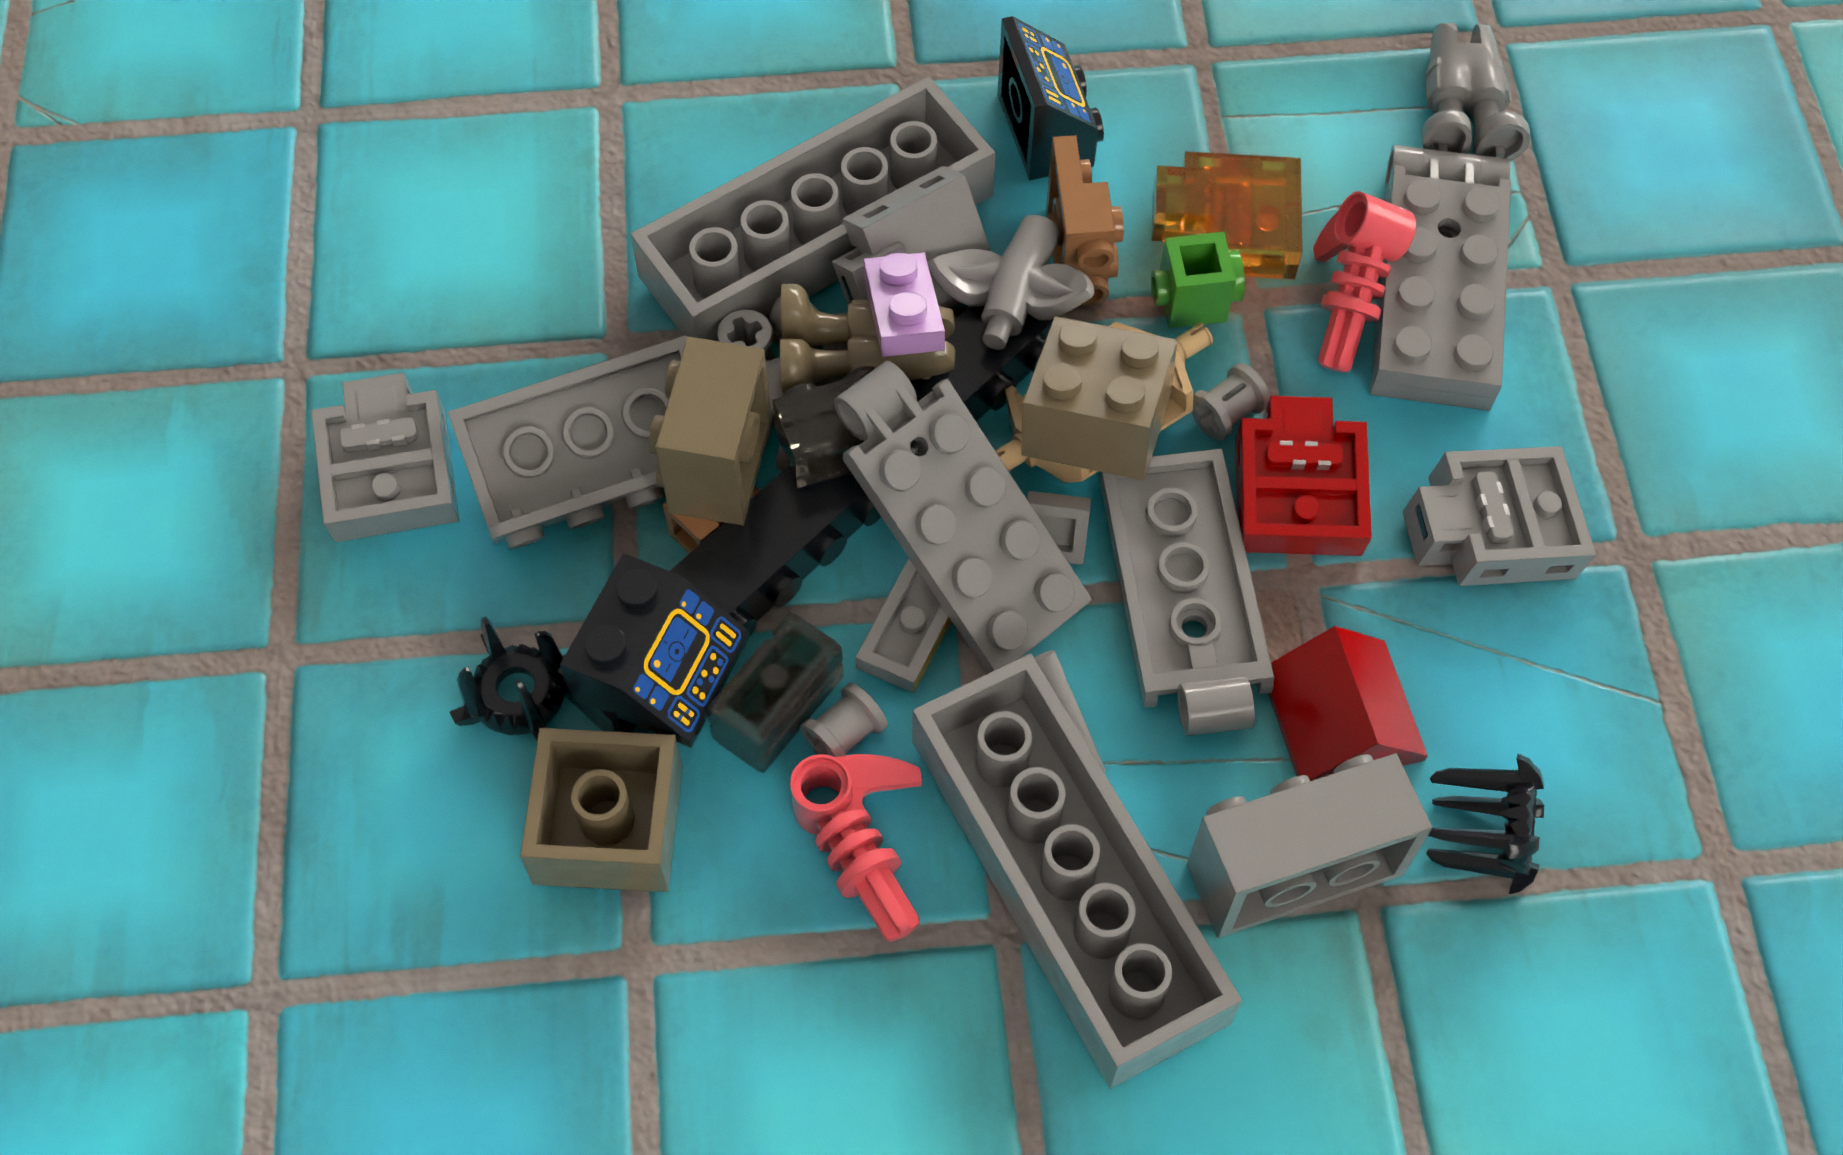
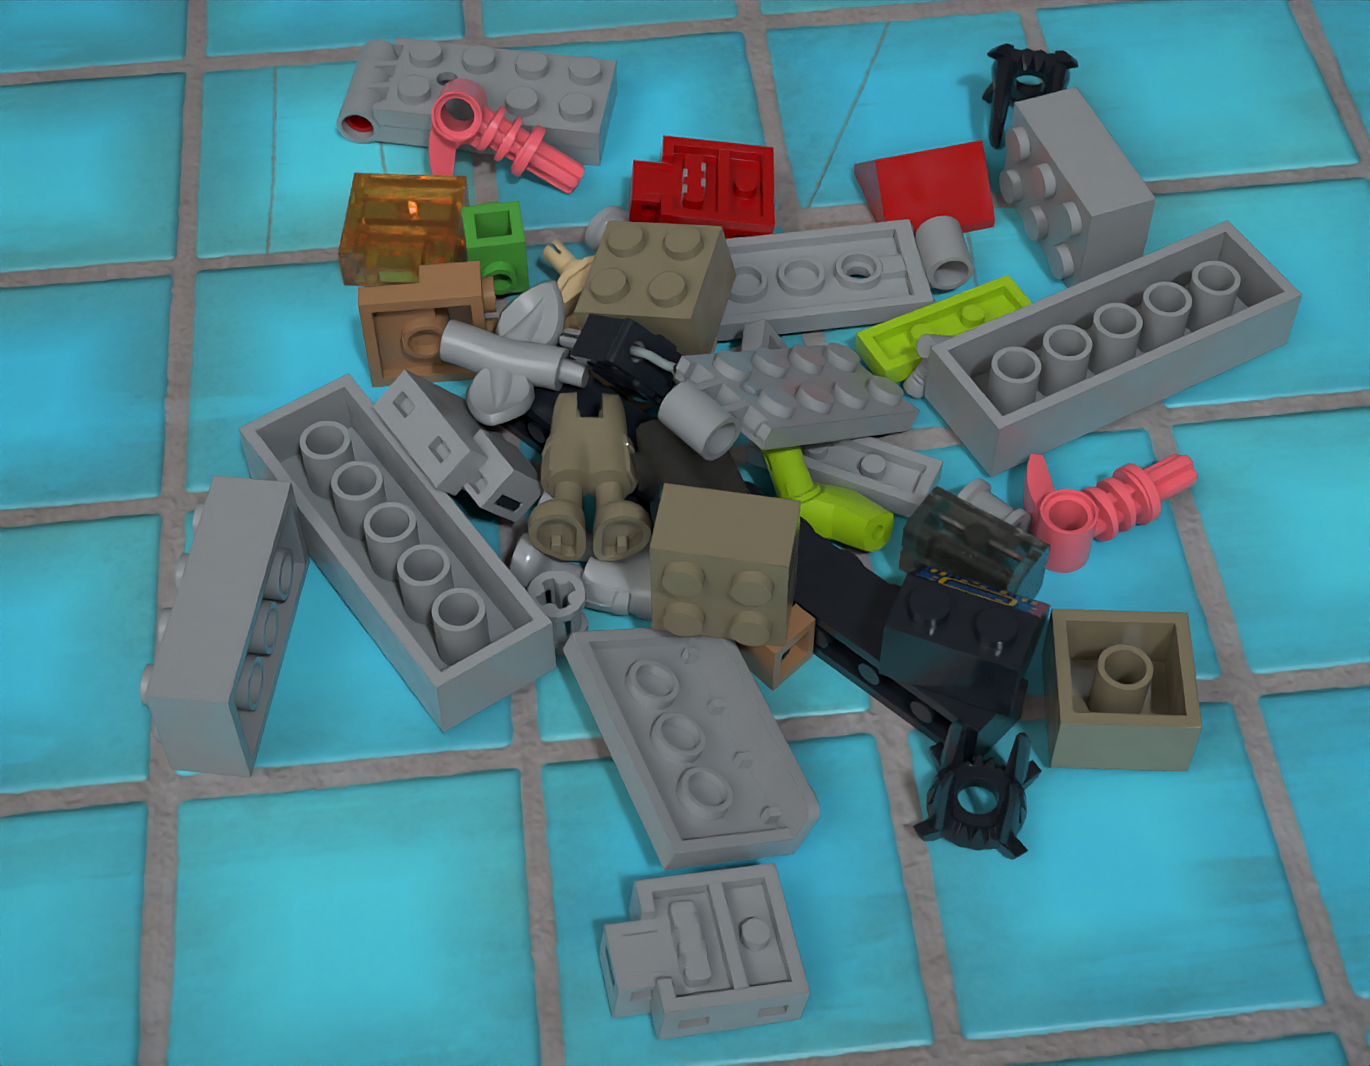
camera: 90 degrees left, 10 degrees down
(719, 93) = (227, 627): none -> light grey brick
(862, 579) = (830, 509): none -> lime arm
(904, 304) = (568, 414): lavender plate -> none
(993, 366) = (626, 356): none -> black piece
(1043, 96) = (260, 365): black slope -> none
(1117, 713) = (892, 345): none -> lime plate
(1473, 81) = (274, 73): light grey piece -> none
(1501, 517) = (740, 80): light grey piece -> none

